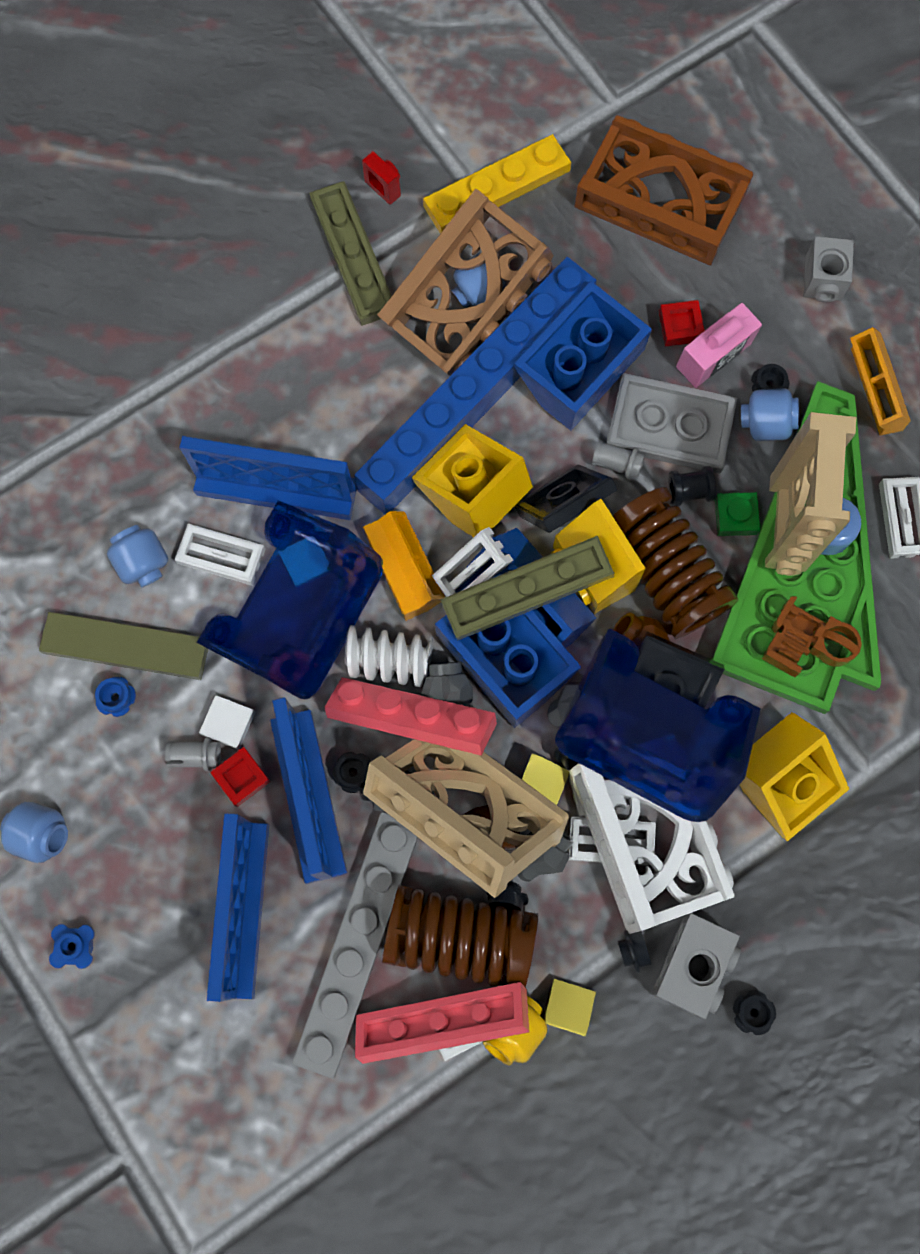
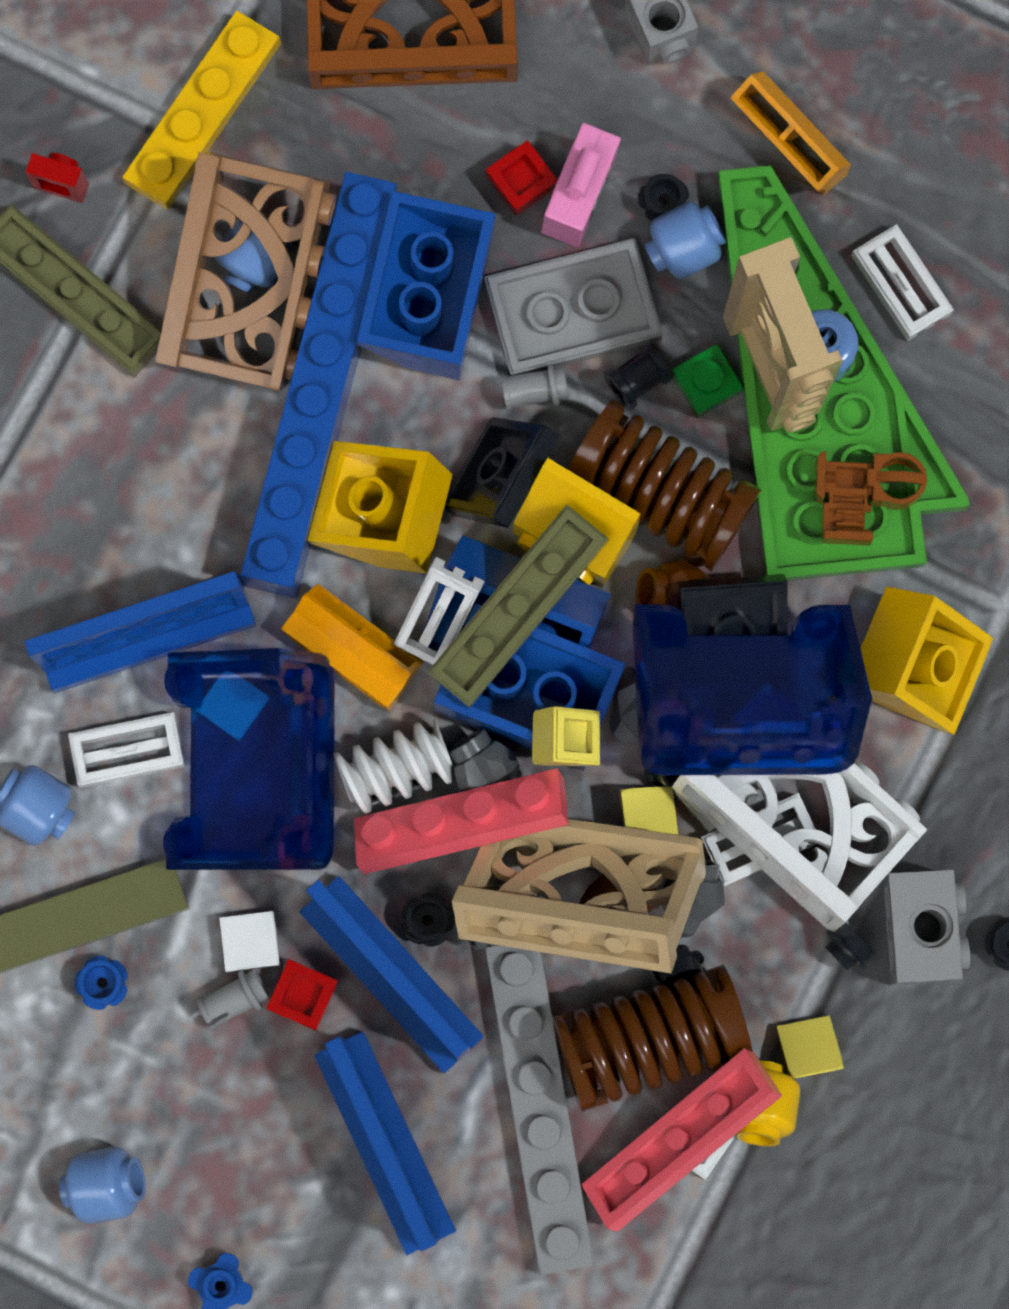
camera: 30 degrees left, 5 degrees up
(512, 694) = (566, 737): none -> light yellow slope

